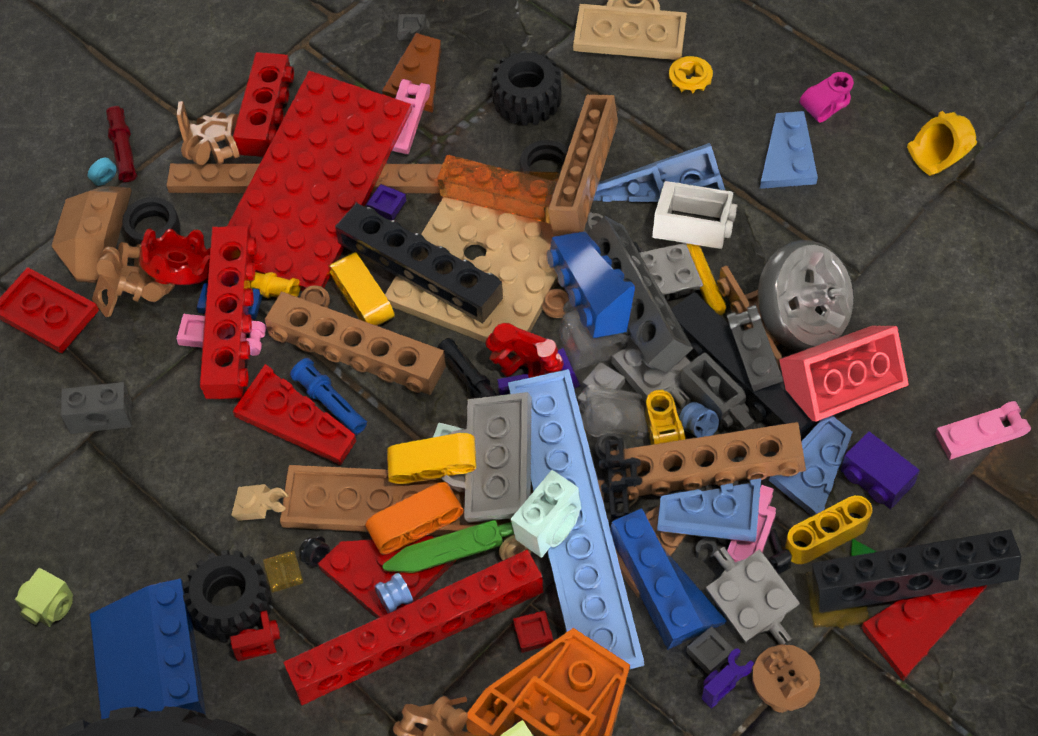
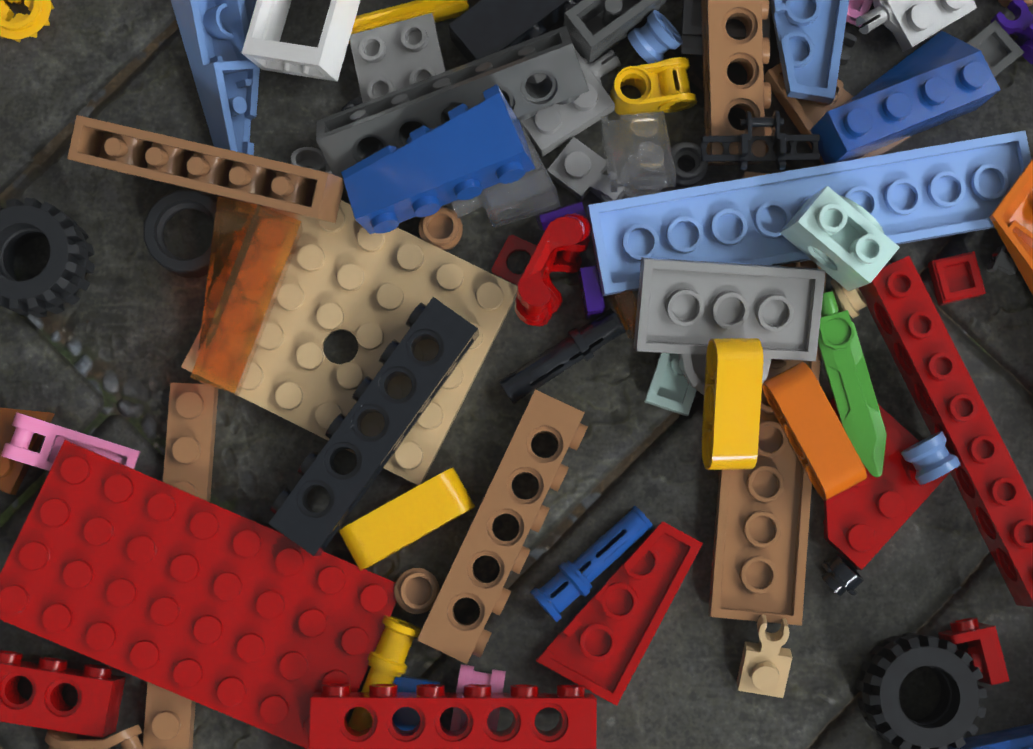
camera: 90 degrees left, 25 degrees up
(283, 571) = (866, 619): clear yellow tile -> none
(387, 201) = (239, 483): dark purple plate -> none

